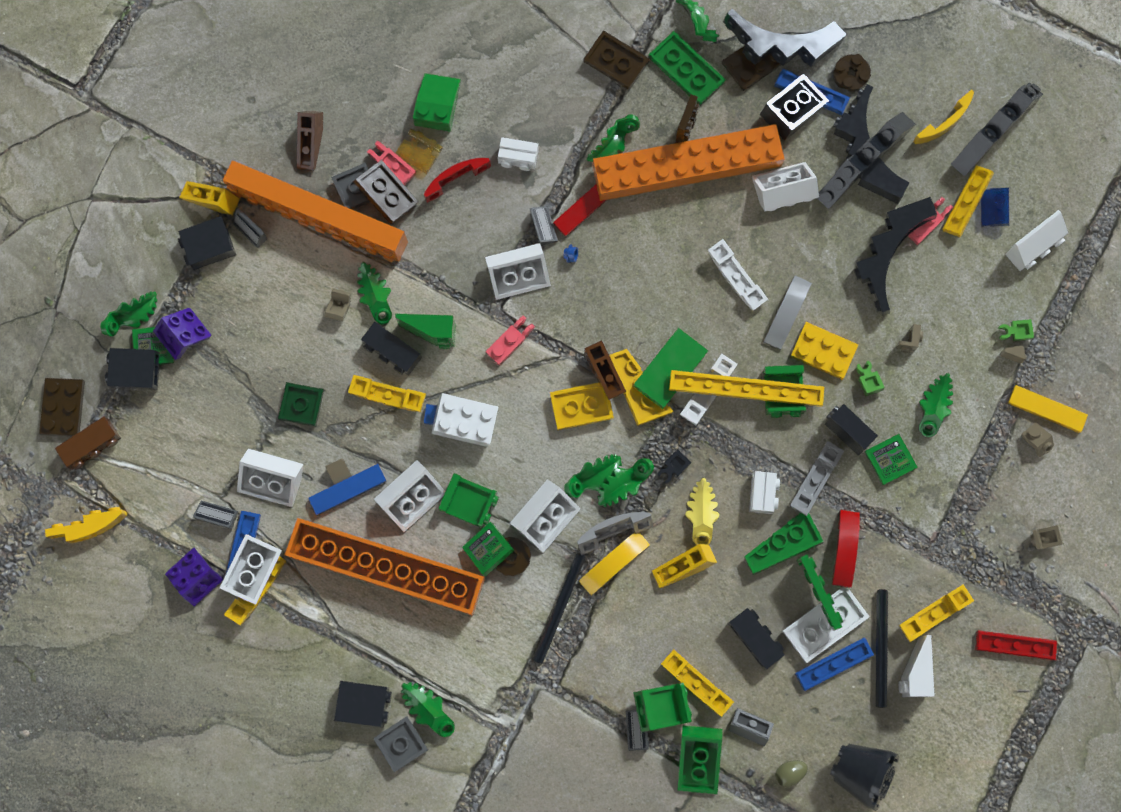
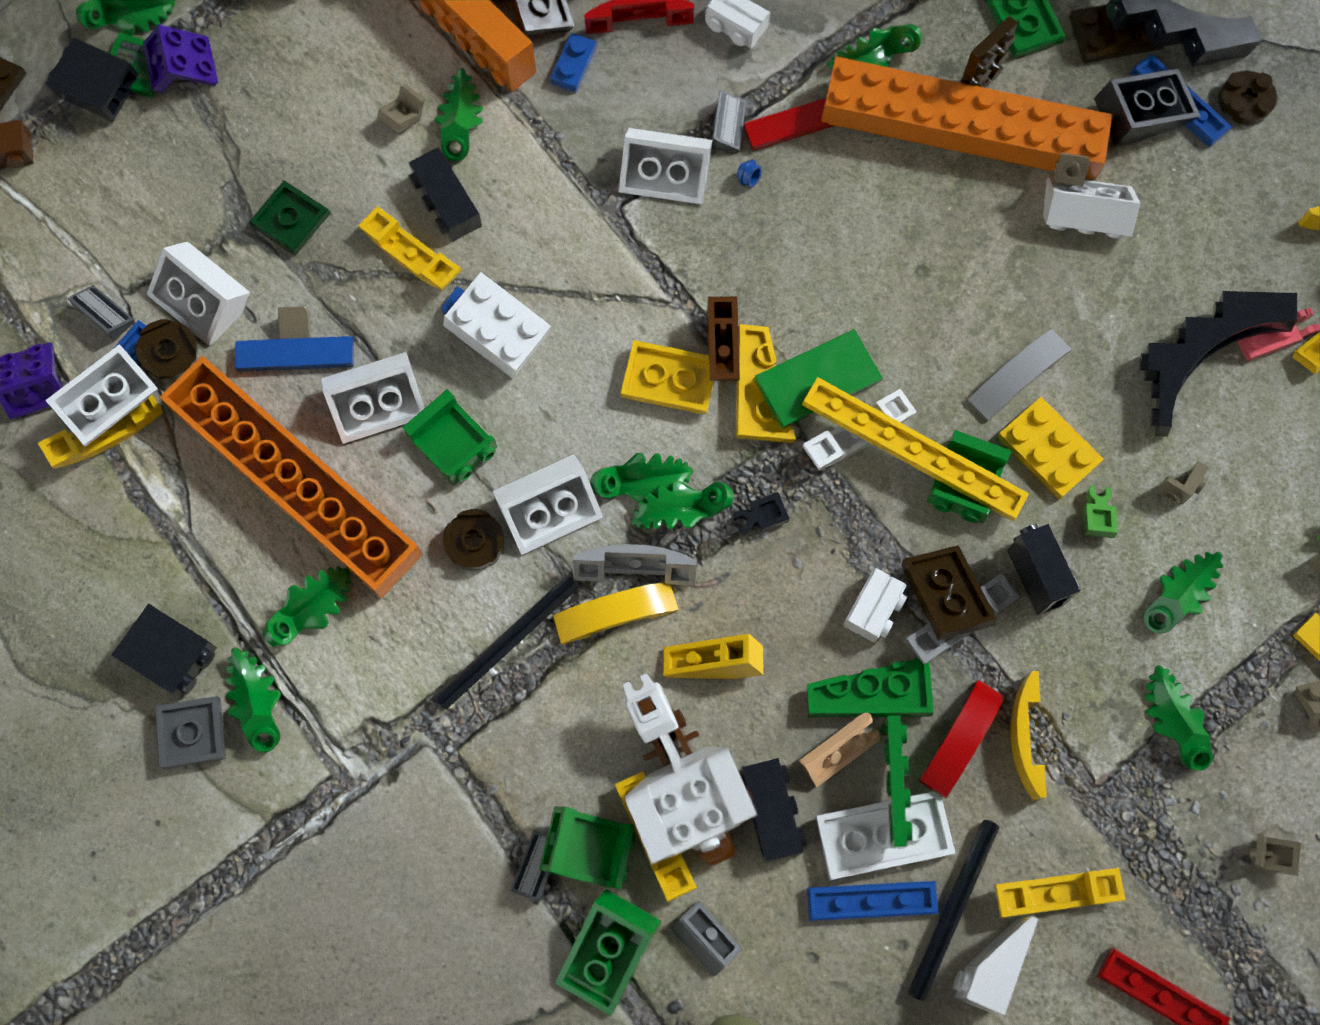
camera: 20 degrees right, 5 degrees down
(269, 510) = (174, 334): none -> dark brown plate
(429, 226) = (573, 62): none -> blue plate
(432, 328) = (513, 187): green slope -> none
(433, 640) = (308, 606): none -> green plant
(487, 548) = (445, 513): green tile -> none
(509, 341) = (611, 252): coral hinge -> none
(702, 512) = (774, 596): light yellow plant -> none
(709, 652) = (691, 797): none -> white piece
(736, 276) = (967, 294): white slope -> none
(766, 173) = (1071, 169): none -> dark tan bracket
(779, 586) = (839, 750): none -> light nougat hinge
(802, 466) = (948, 592): none -> dark brown plate
(854, 129) = (1226, 238): black arch -> none
(864, 158) = (1200, 210): black arch -> none
(871, 507) = (1031, 775): none -> yellow slope
(891, 459) = (1084, 640): green tile -> none
(962, 483) = (1178, 720): none -> green plant

